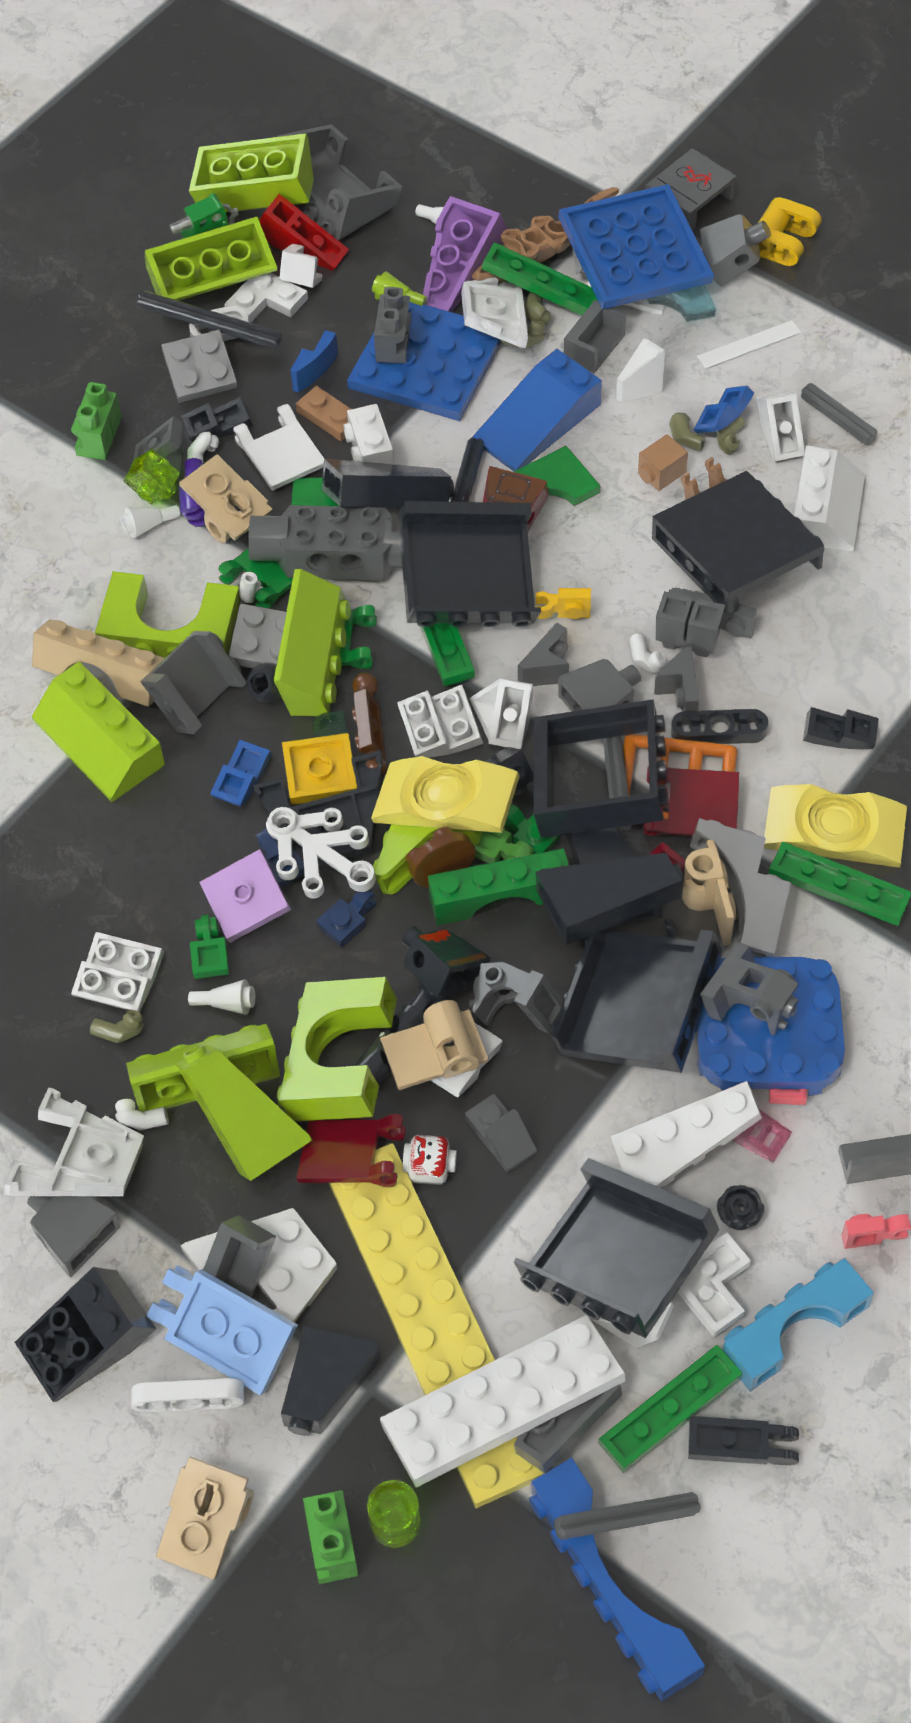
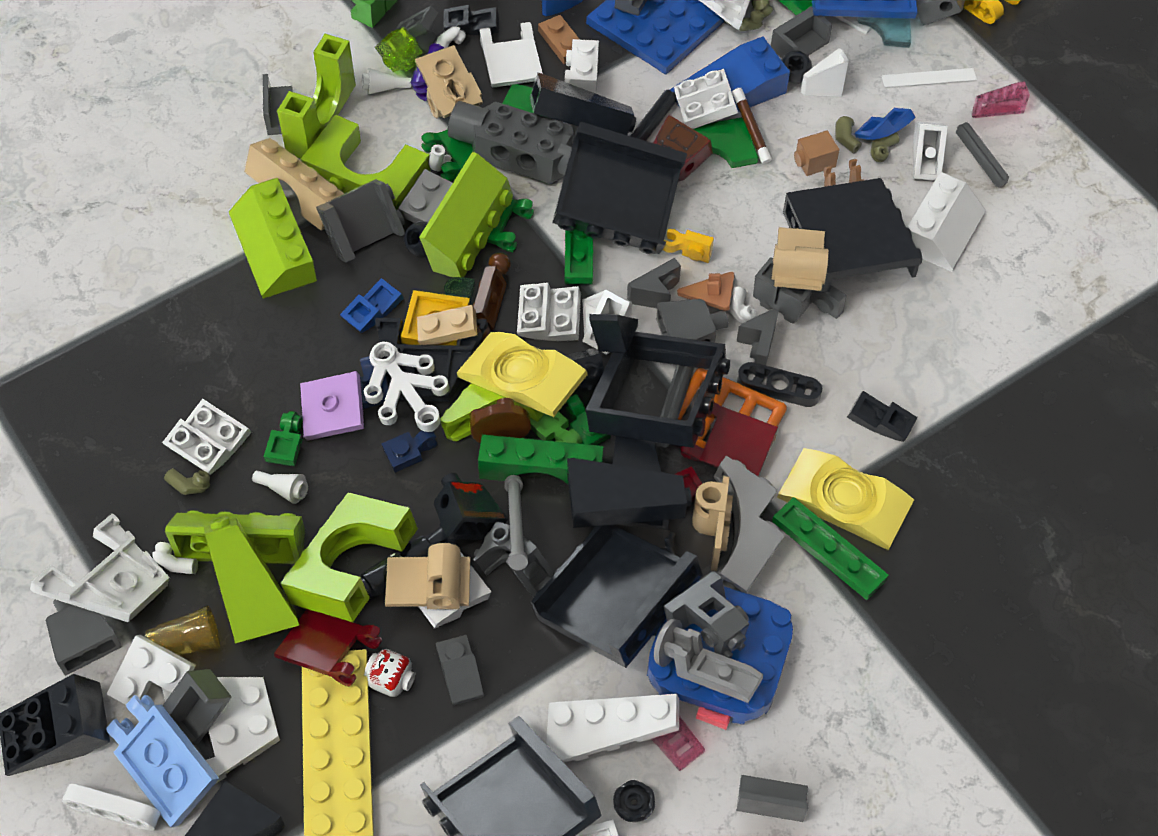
camera: 15 degrees right, 0 degrees up
(39, 583) = (272, 100): none -> dark grey panel
(85, 580) = (306, 117): none -> lime arch
(162, 1233) = (146, 664): none -> white plate
(188, 1191) = (187, 633): none -> clear yellow plant
(339, 770) = (447, 325): none -> tan plate
(519, 436) = (705, 99): none -> white slope
(527, 723) = (613, 332): none -> black slope
(530, 991) = (517, 558): none -> light grey bar
(580, 452) = (751, 125): none -> reddish brown bar
(605, 368) = (798, 65): none -> black piece
(611, 644) = (714, 291): none -> nougat piece
(699, 584) = (800, 259): none -> tan piece
(765, 1043) = (702, 665): none -> light grey piece
(839, 349) = (1002, 101): none -> clear pink slope

